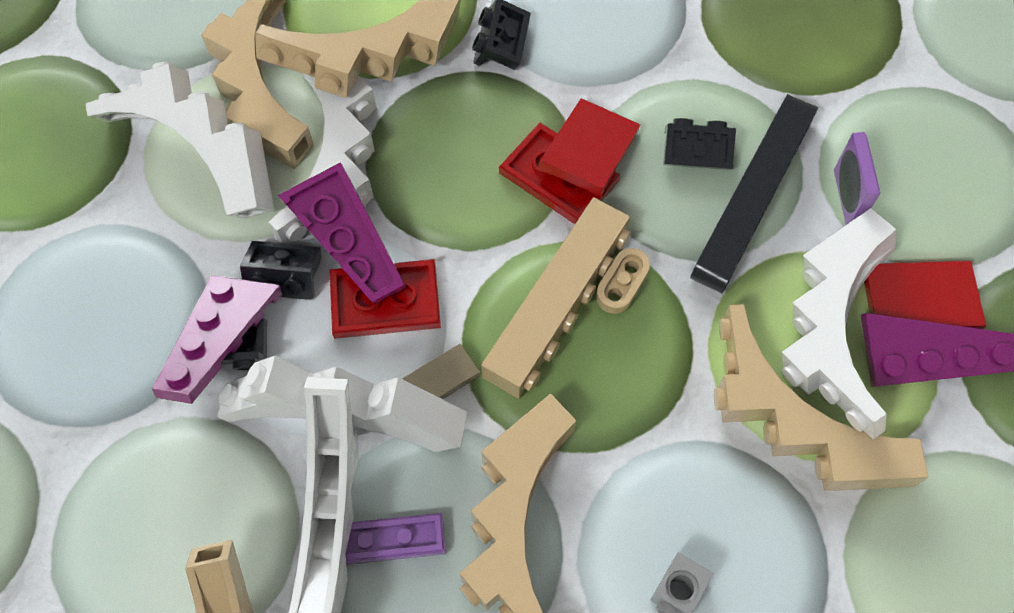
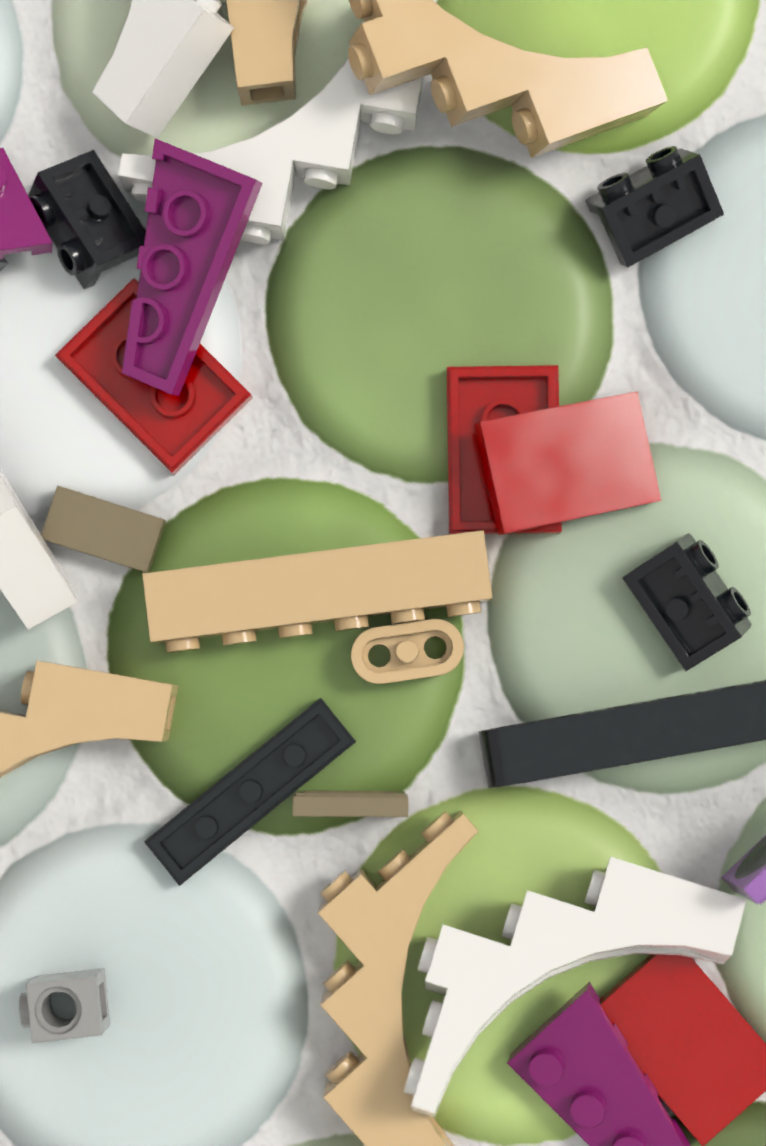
camera: 50 degrees right, 20 degrees up
(635, 410) = (250, 791): none -> black tile
(681, 360) = (350, 803): none -> dark tan tile

